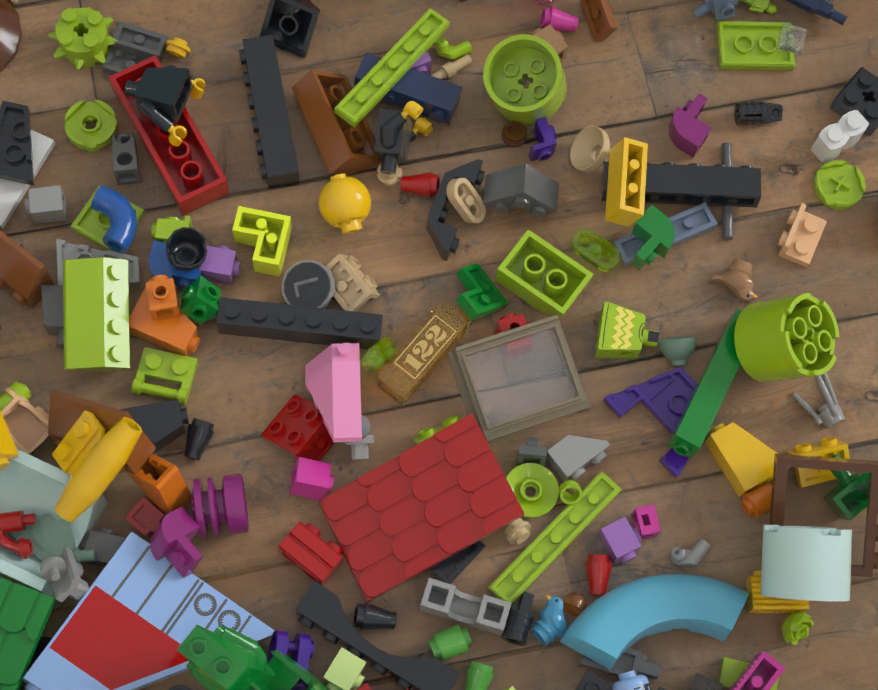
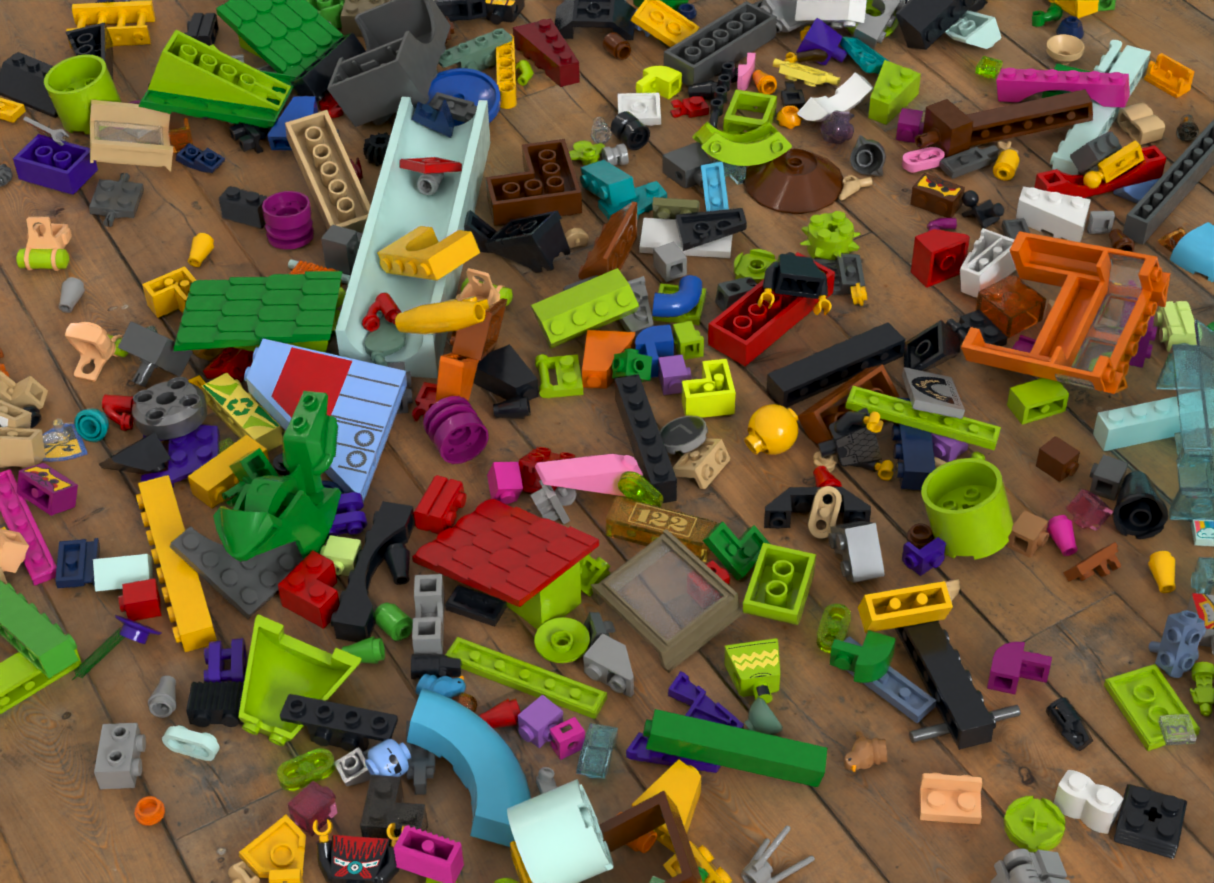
camera: 80 degrees right, 25 degrees down
(64, 576) = (355, 342): light grey hips -> none
(166, 305) = (618, 337): orange brick -> none
(174, 539) = (410, 394): magenta brick -> none
(186, 249) = (667, 337): black hair -> none
(360, 43) = (932, 393): none -> light grey tile
(518, 531) = (518, 642): tan plate -> none
(566, 495) = (571, 667): lime hinge -> none
(667, 500) = (597, 751): none -> clear light blue slope
(786, 338) = (783, 784): lime brick -> none

